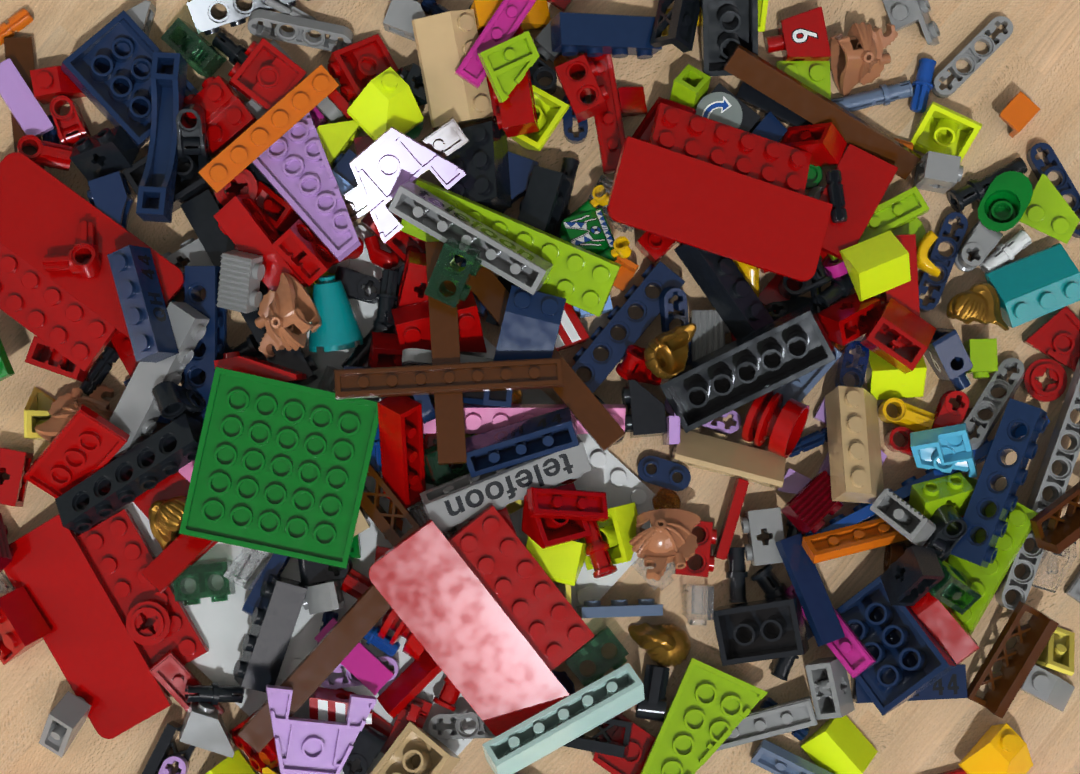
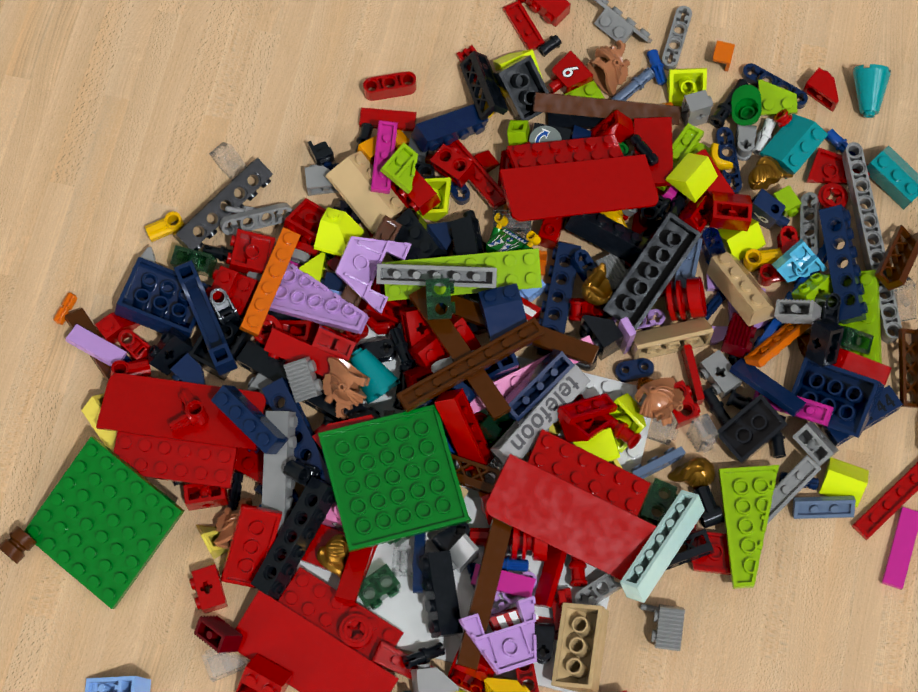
camera: 25 degrees left, 15 degrees down
(1042, 242) = (782, 118): none -> red bush

